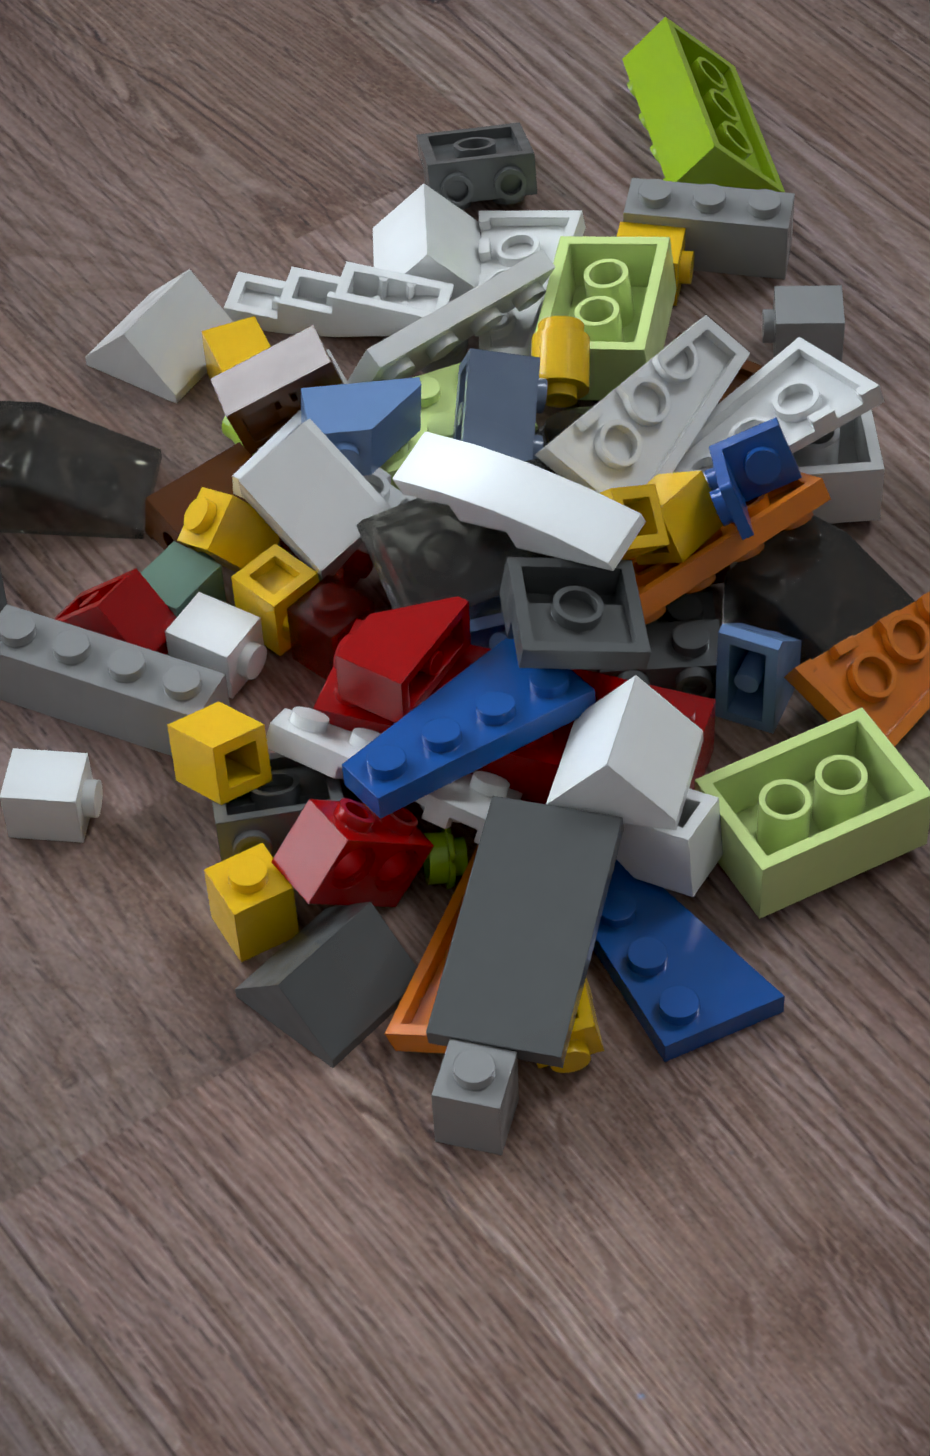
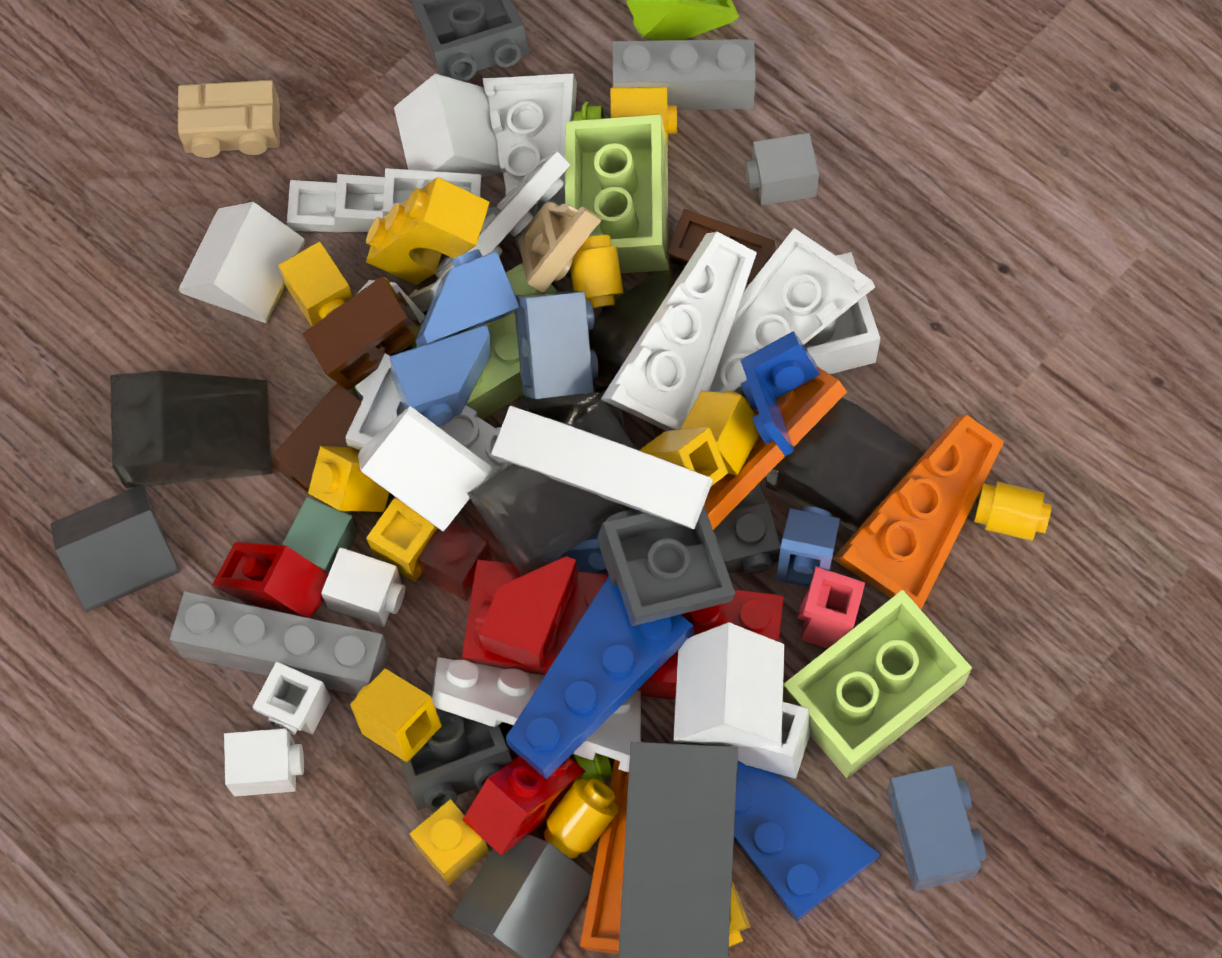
camera: 10 degrees left, 20 degrees up
(112, 745) = (292, 700): none -> white brick
(185, 209) = (229, 117): none -> tan brick
(381, 299) = (423, 227): none -> yellow arch
(411, 345) = (468, 297): none -> medium blue slope
(419, 895) = (581, 817): none -> yellow brick
(514, 329) = (552, 241): none -> tan wing
(769, 715) = (829, 607): none -> coral brick
(859, 975) = (935, 827): none -> sand blue brick

